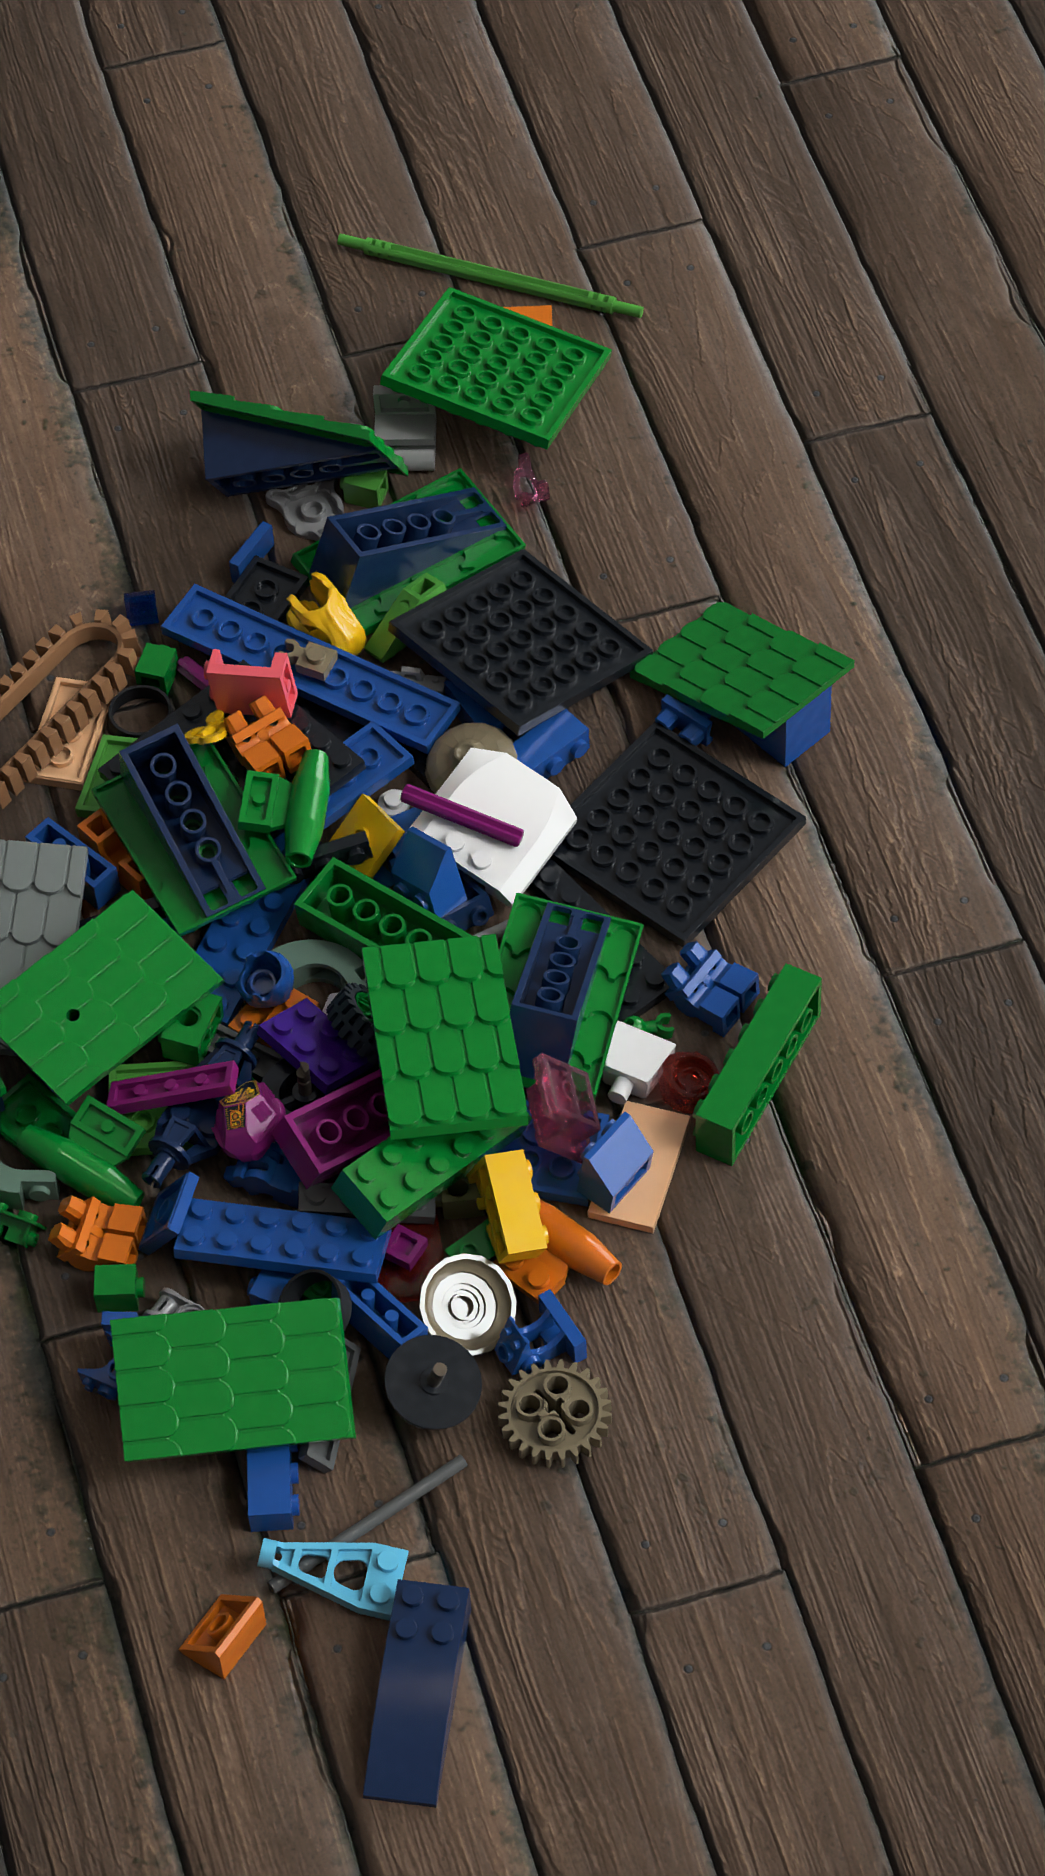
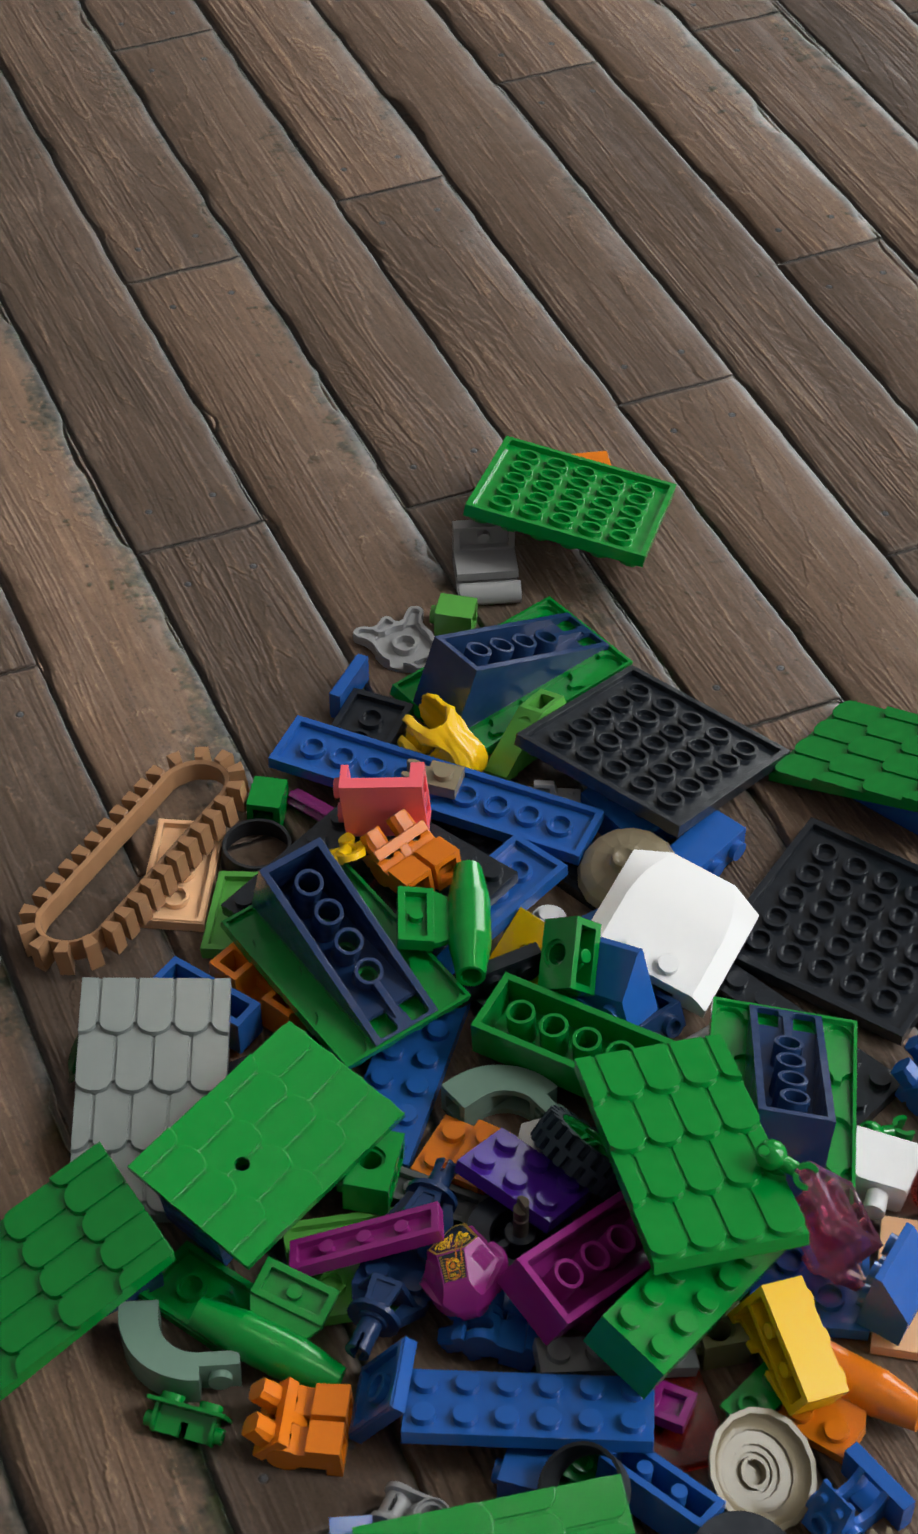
camera: 10 degrees left, 10 degrees down
(118, 1288) = (333, 1487): green brick -> none
(141, 607) = (242, 744): clear blue tile -> none
(265, 979) = (451, 1111): blue hair -> none
(267, 448) = (366, 578): dark blue piece -> none
(390, 847) = (570, 956): none -> green brick
(462, 815) = (640, 918): magenta axle -> none
(490, 275) = (540, 430): bright green axle -> none
(513, 1050) = (779, 1159): none -> green arm
(541, 487) = (615, 594): clear pink helmet -> none
(692, 722) = (843, 814): blue hips -> none

